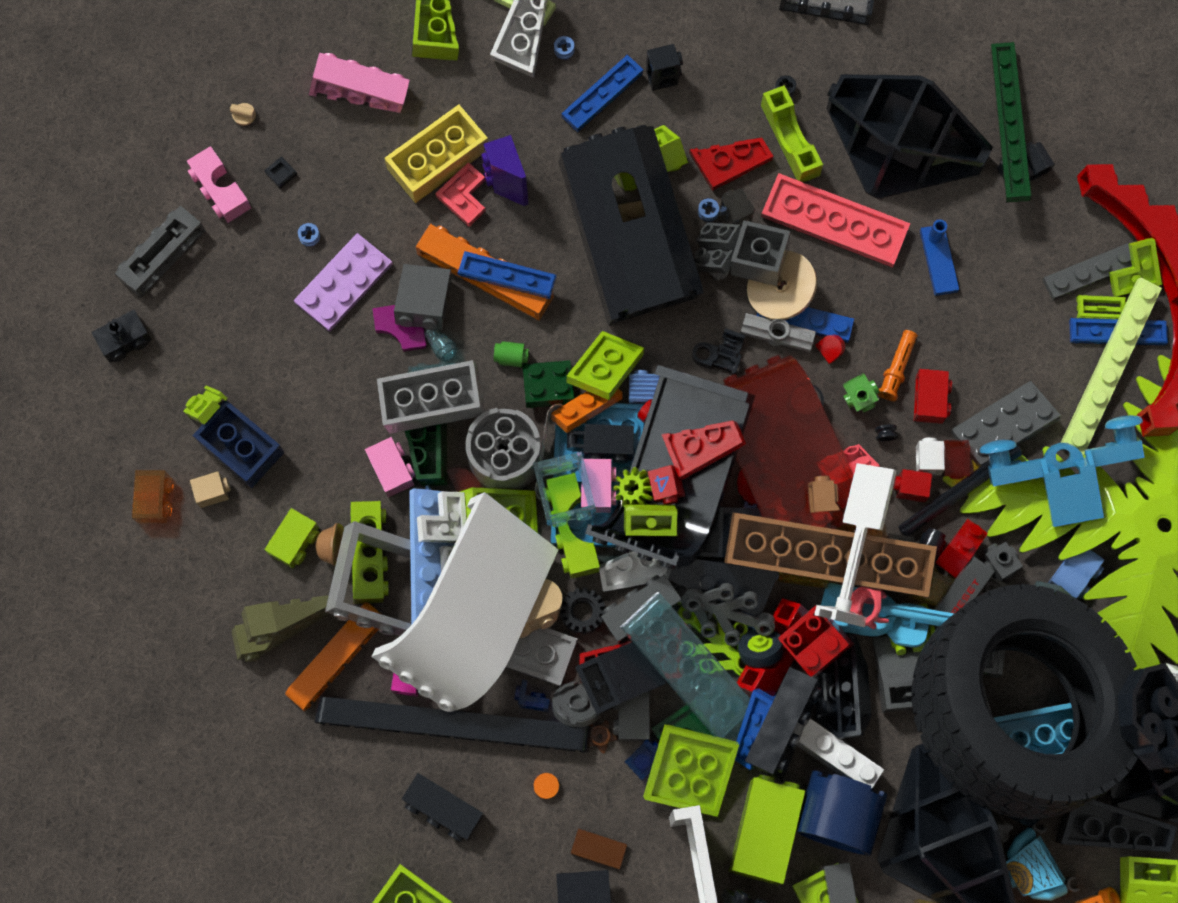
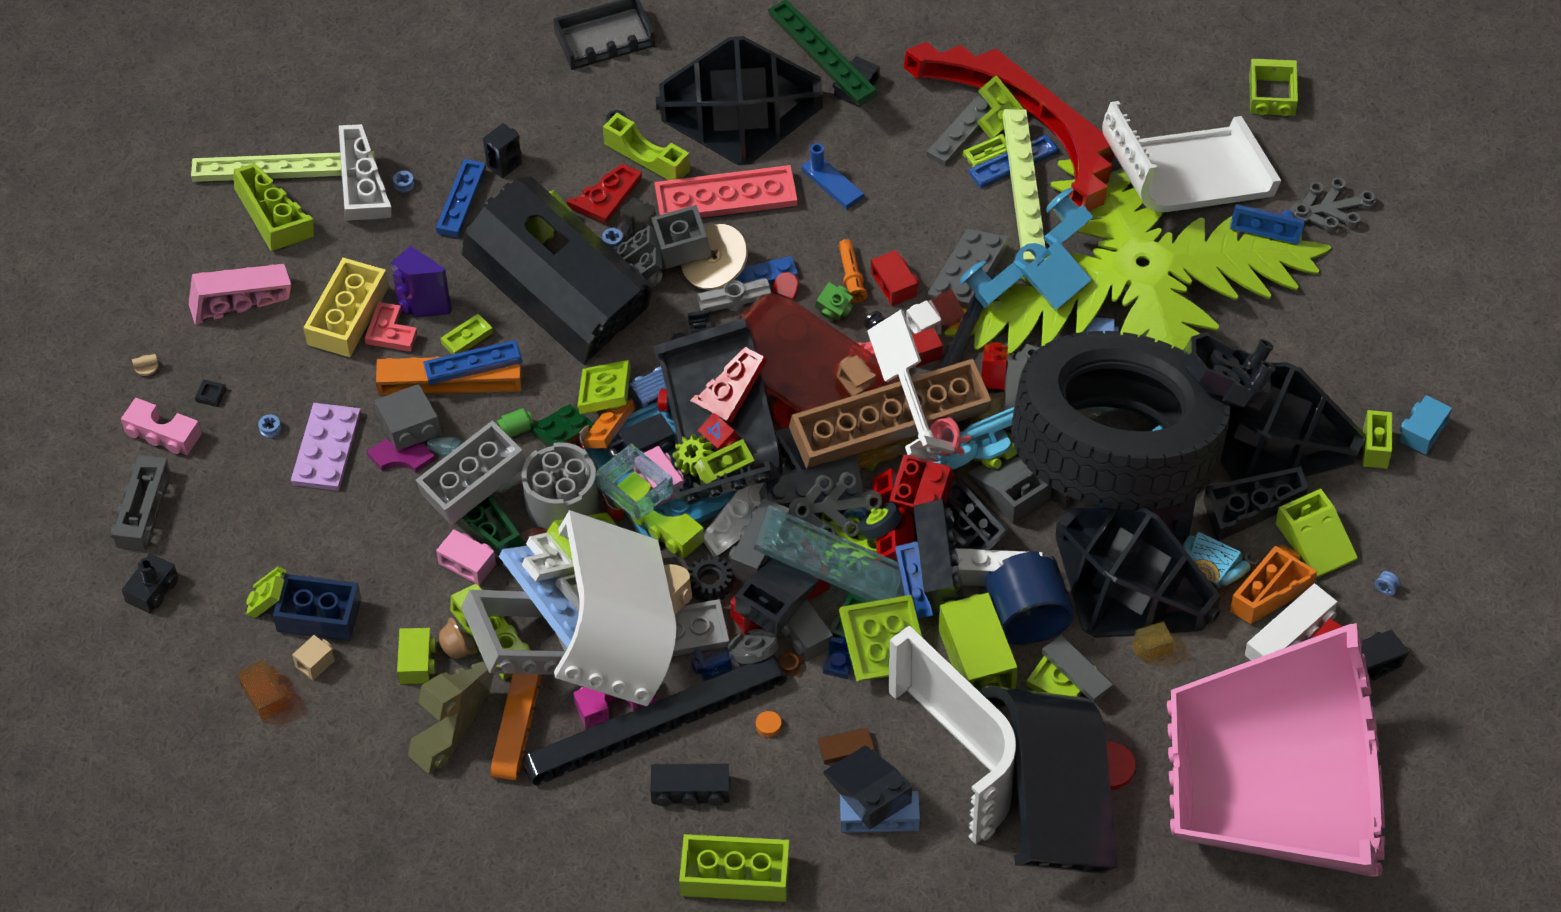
camera: 30 degrees left, 20 degrees down
(524, 239) = (466, 335): none -> lime plate

